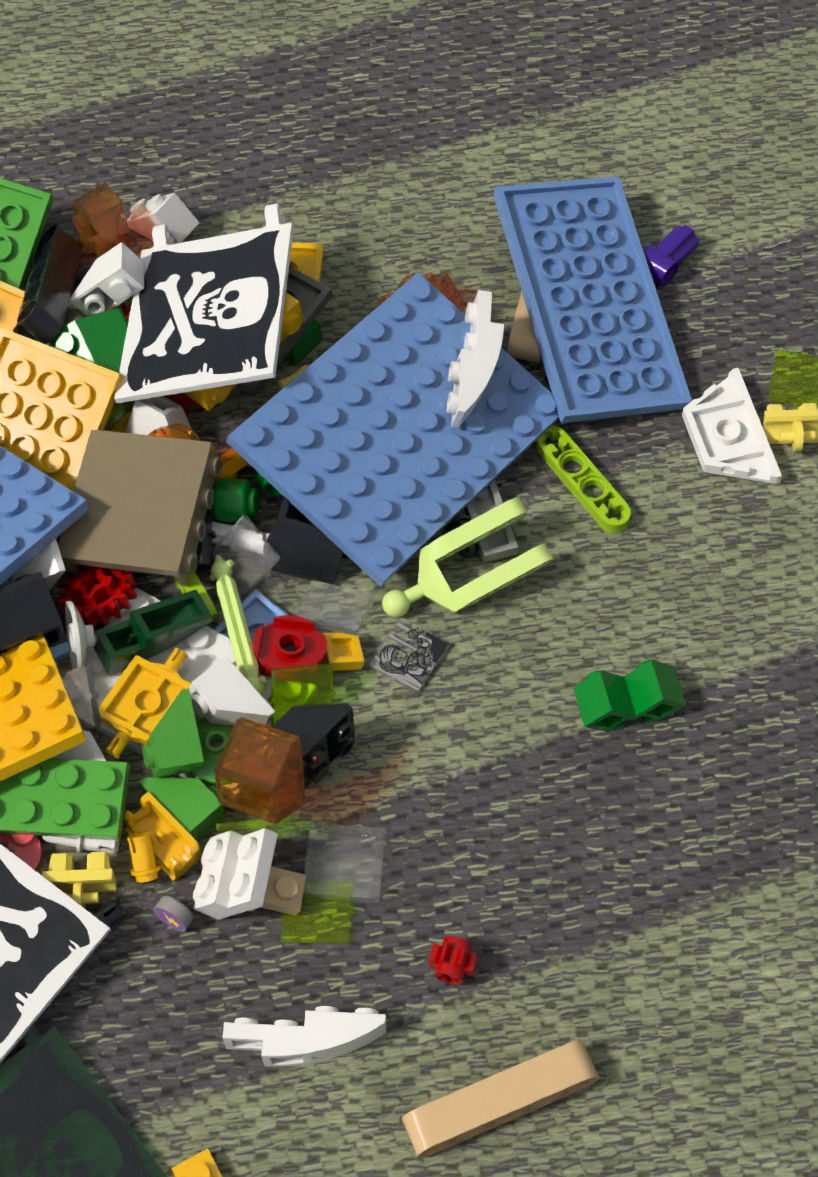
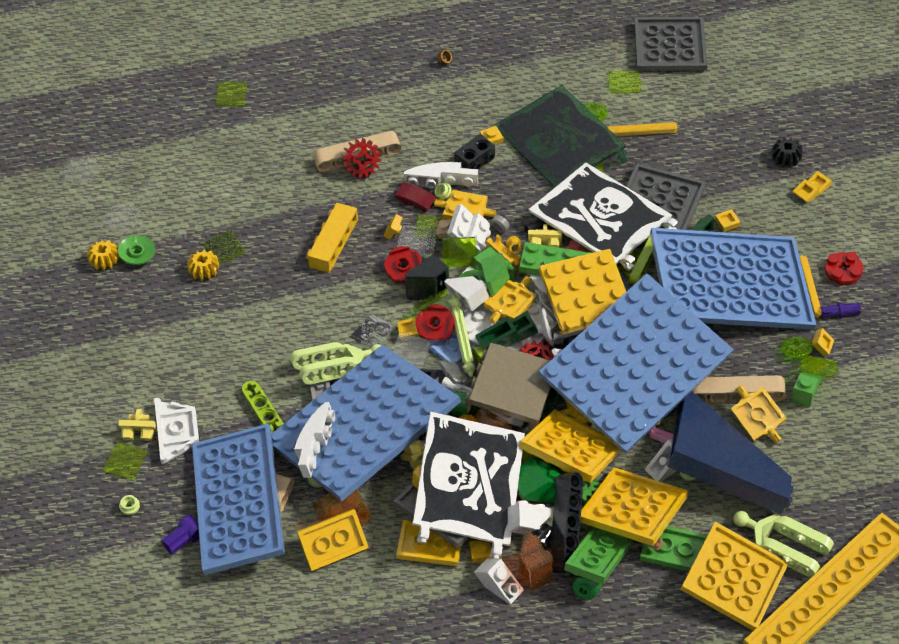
camera: 175 degrees left, 10 degrees down
(242, 1110) = (475, 153): none -> black brick
(249, 960) = (472, 202): none -> yellow plate
(261, 772) = (453, 252): clear orange slope -> none
(299, 996) = (443, 191): none -> yellowish green plate
(359, 979) = (412, 194): none -> dark red slope
(371, 810) = (394, 260): none -> red plate
(397, 887) = (393, 227): none -> yellow plate
(426, 251) = (332, 539): none -> yellow plate
(453, 960) = (370, 198): red gear -> none
(485, 1053) = (362, 150): none -> red gear
(518, 854) = (332, 237): none -> yellow brick
(646, 692) = (264, 299): green brick -> none
(738, 830) = (225, 246): none -> clear neon green piece
(767, 778) = (203, 264): none -> yellow gear
(768, 293) = (129, 500): none -> yellowish green plate

